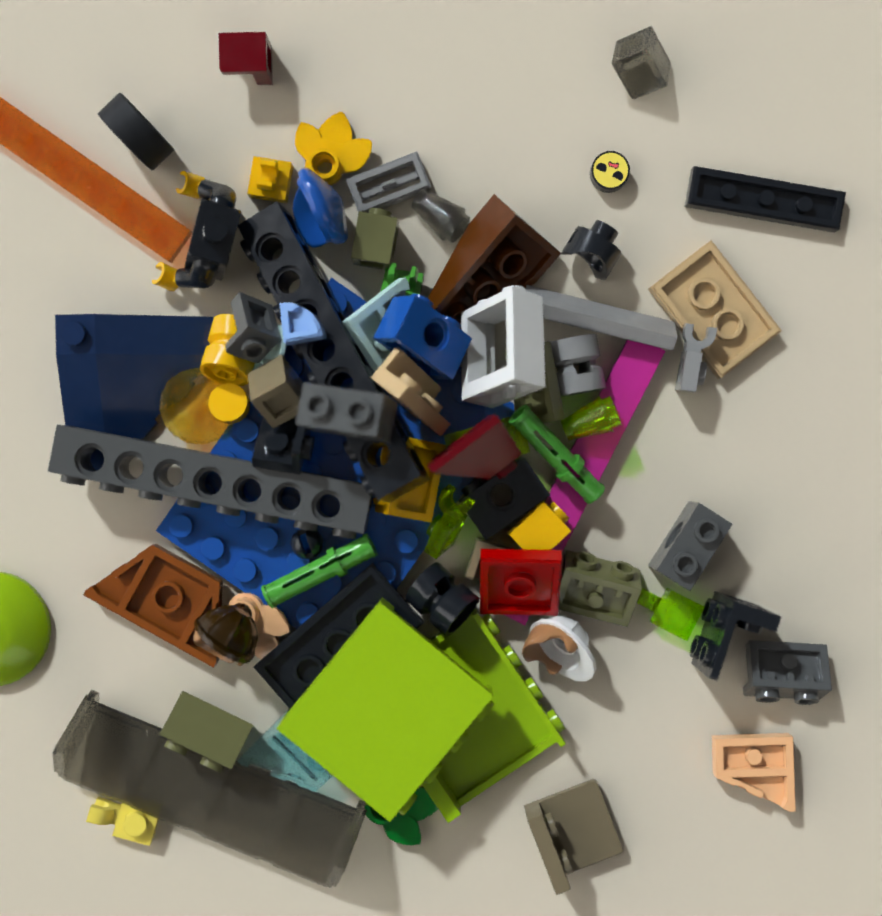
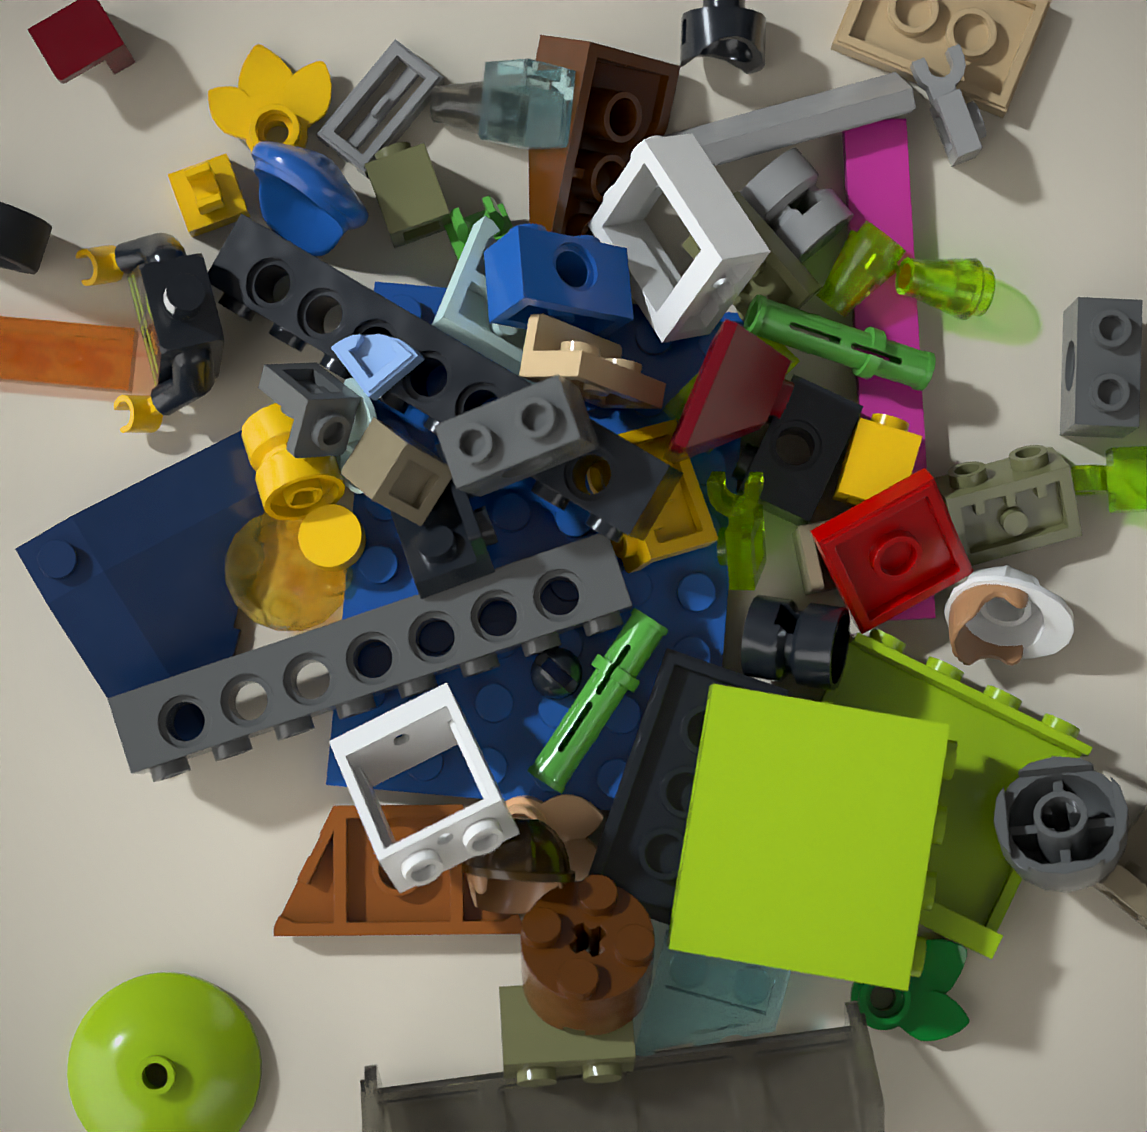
camera: 30 degrees left, 5 degrees down
(195, 533) = (375, 754): none -> white window
(215, 717) = (587, 956): none -> reddish brown brick
(463, 228) = (526, 104): none -> clear light blue panel
(524, 777) = (1062, 824): none -> dark grey cylinder
(636, 455) = (950, 285): none -> clear neon green cone

